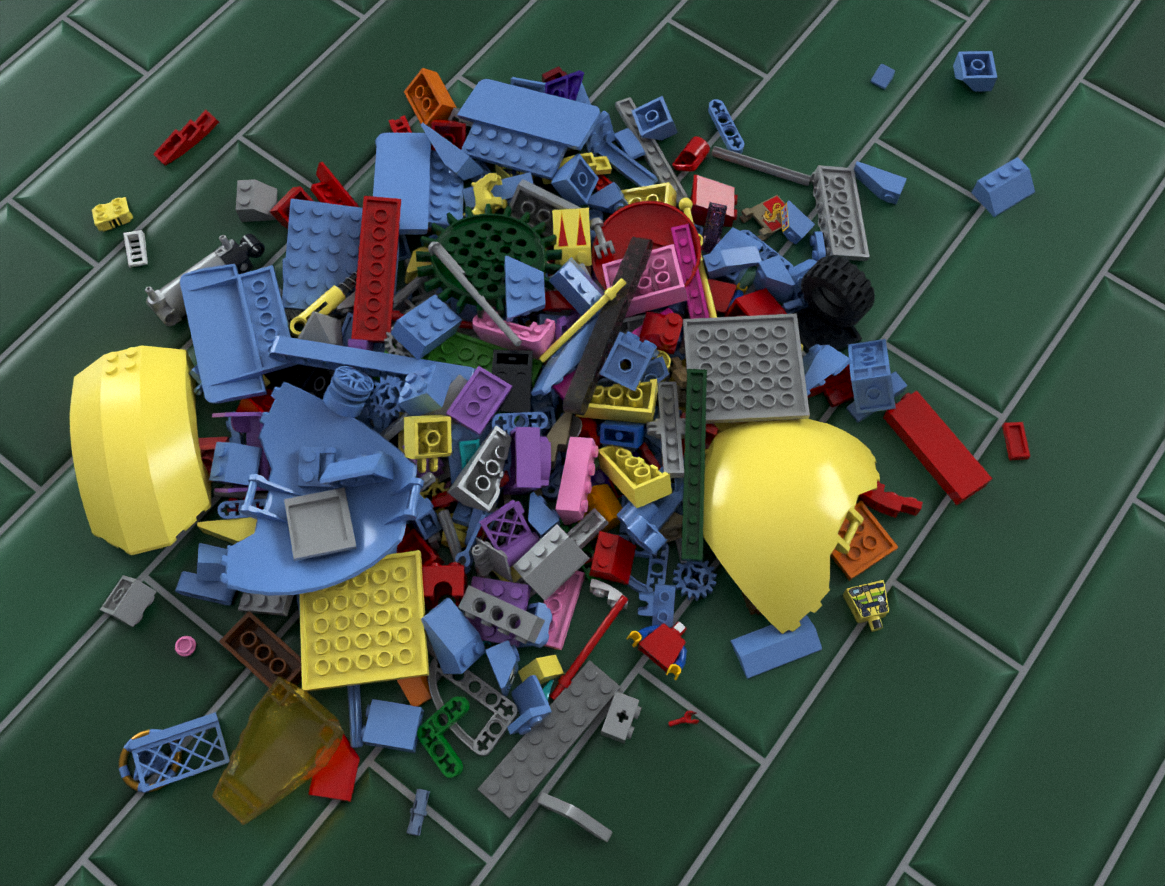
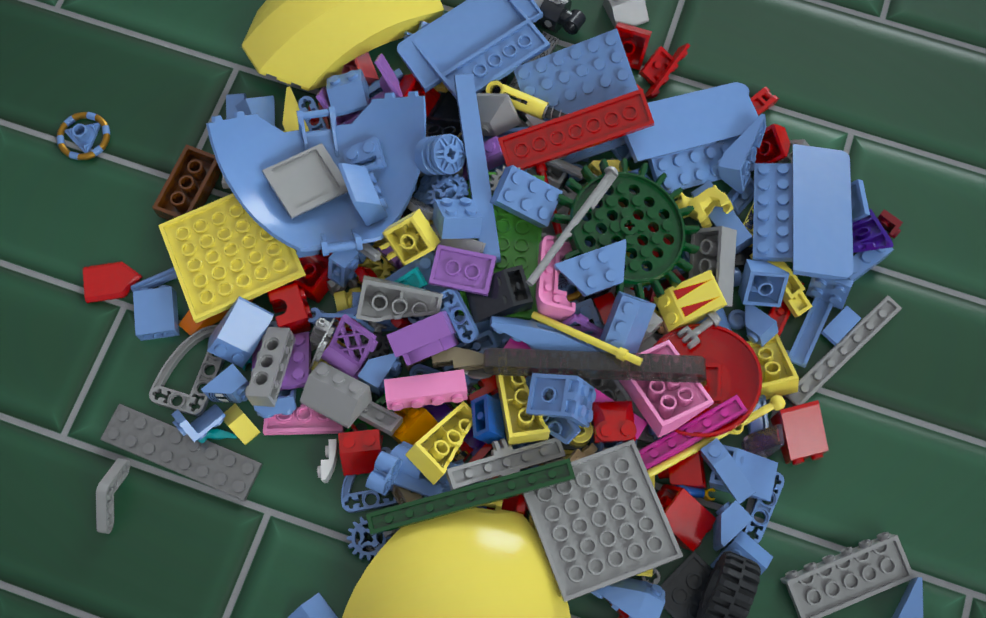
camera: 70 degrees right, 5 degrees up
(128, 600) = (208, 64): light grey slope -> none
(172, 734) = (104, 144): medium blue fence -> none
(185, 646) = (183, 122): bright pink plate -> none
(278, 751) = (104, 226): clear yellow windscreen -> none
(418, 812) = (88, 361): sand blue pin -> none
(429, 97) = (809, 114): orange slope -> none
(436, 733) = (158, 351): green beam -> none
(451, 535) = (336, 296): light grey axle -> none
(565, 680) = (236, 447): red bar -> none
(621, 705) = (203, 503): light grey brick -> none
(654, 120) = (880, 342): medium blue slope -> none
(659, 604) = (332, 510): medium blue plate -> none
(663, 646) = (291, 528): torso -> none
(687, 718) = (229, 572): red hand -> none
(692, 155) = (855, 396): red piece -> none
(724, 127) = (909, 421): medium blue beam -> none
(761, 165) = (875, 474): light grey axle -> none
(767, 216) = (814, 501): flag -> none
(792, 306) = (706, 554): medium blue tile -> none
(794, 223) = (811, 529): medium blue slope -> none
(817, 242) = (800, 560): medium blue plate -> none

